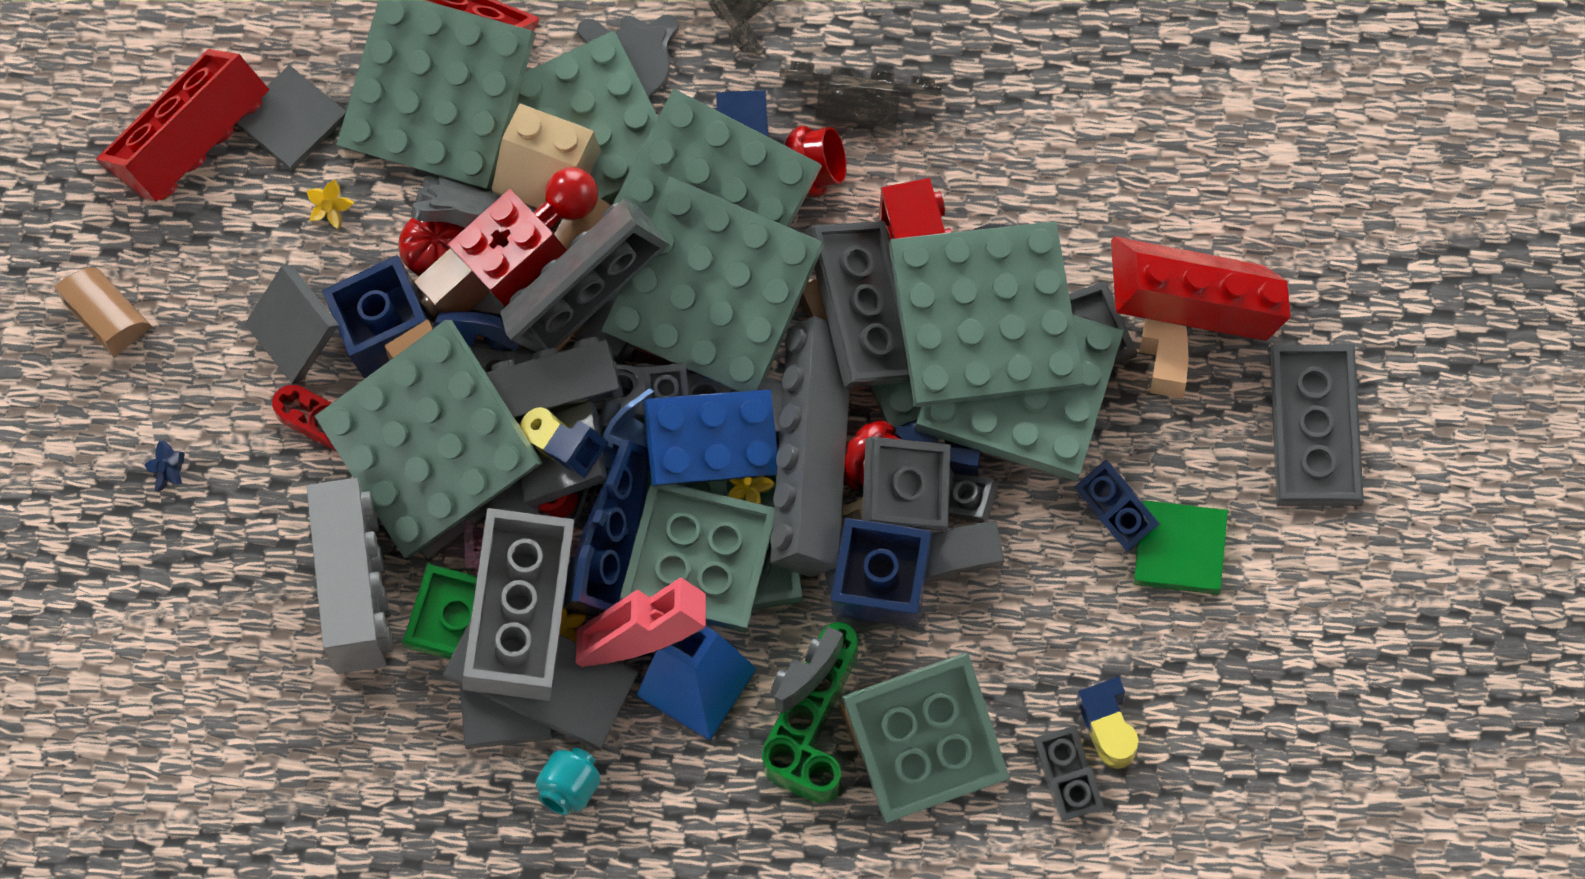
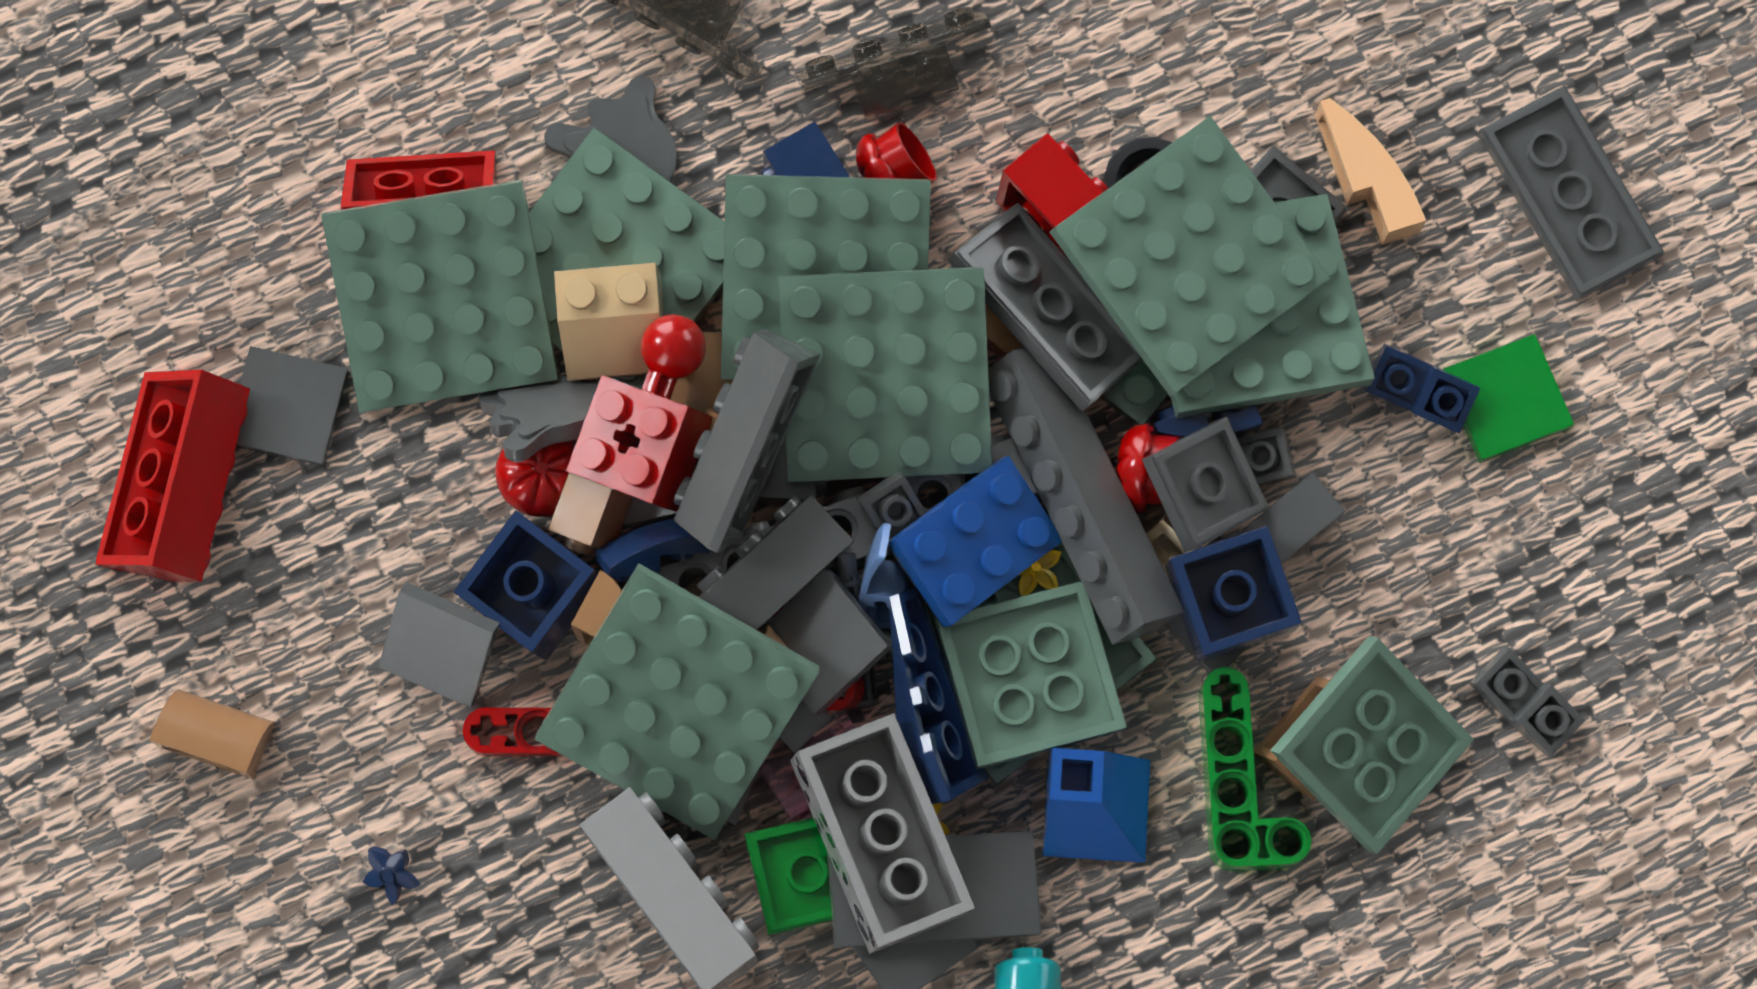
camera: 35 degrees left, 10 degrees up
(328, 203) = (391, 484): yellow plant -> none
(572, 448) = (808, 631): dark blue leg -> none
(642, 624) = (1020, 786): coral slope -> none
(800, 678) = (1216, 756): dark grey slope -> none
(1111, 736) = (1539, 630): leg -> none
(1198, 289) = (1384, 109): red slope -> none

